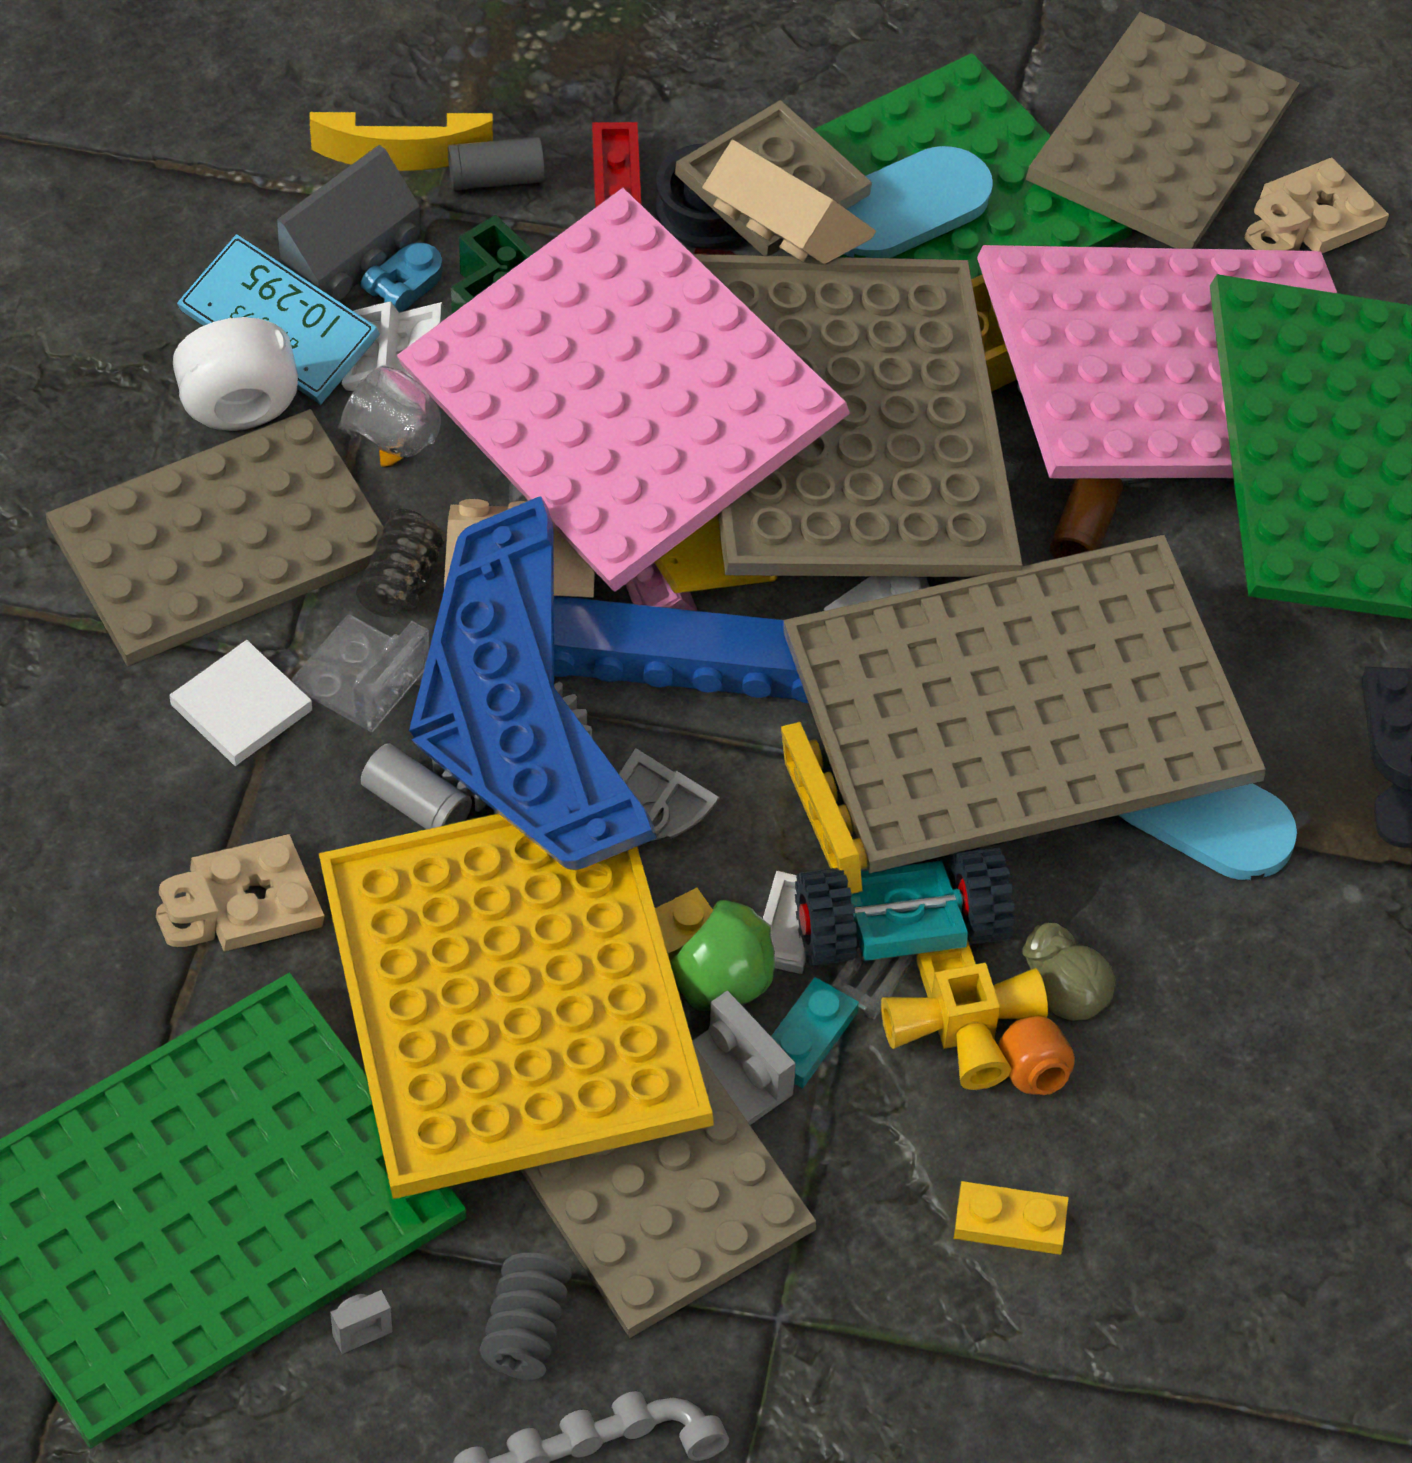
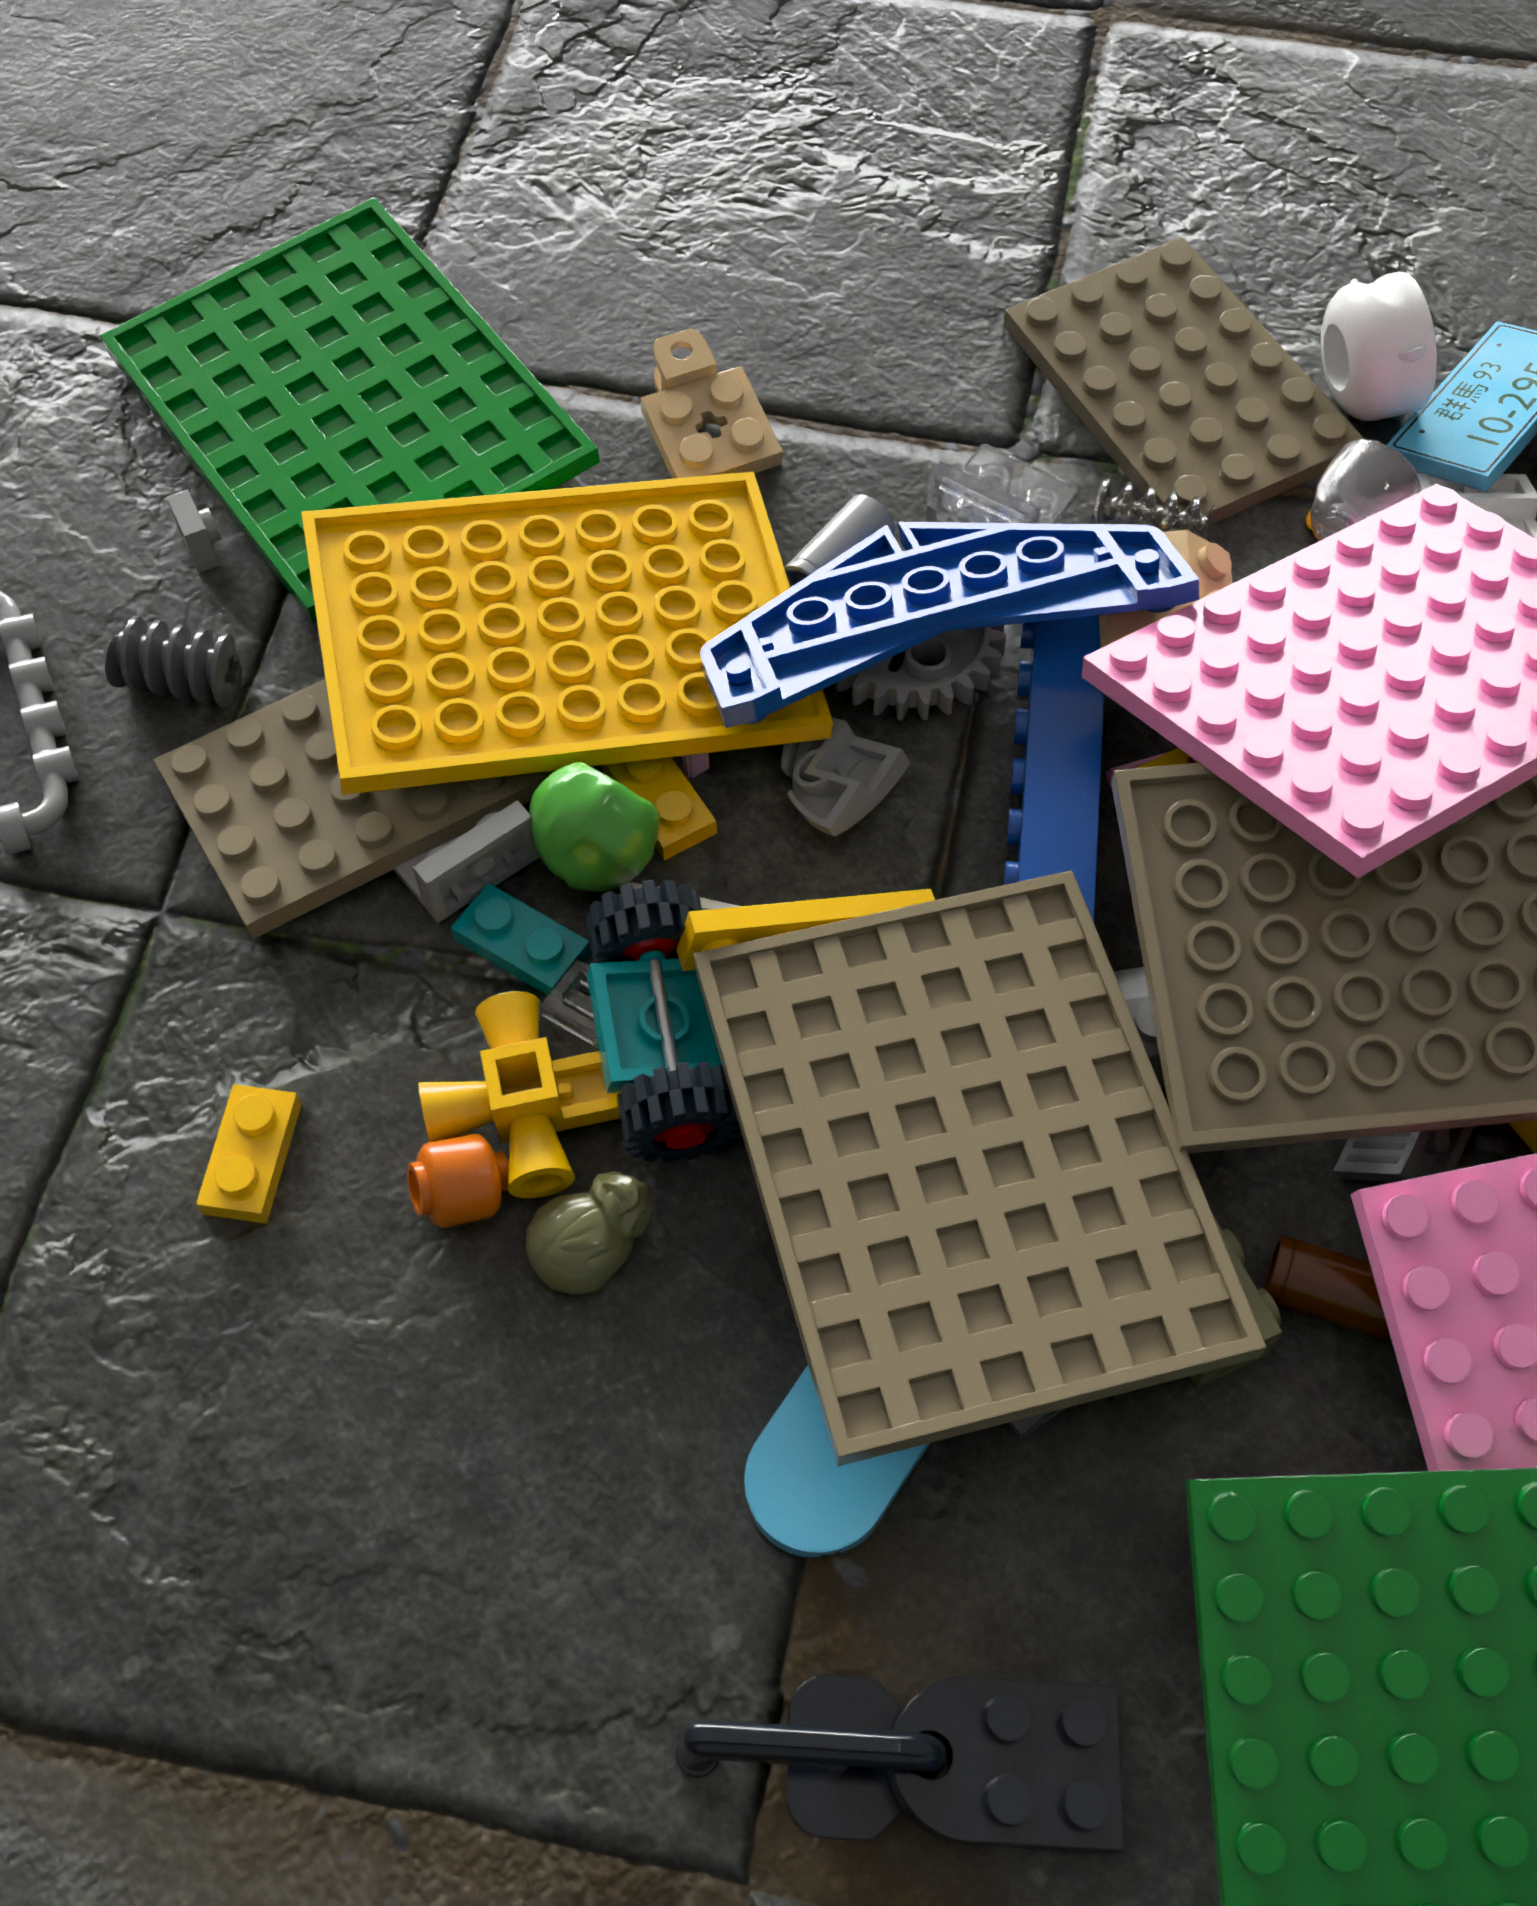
camera: 95 degrees right, 5 degrees up
(241, 702) = (956, 408): white tile -> none

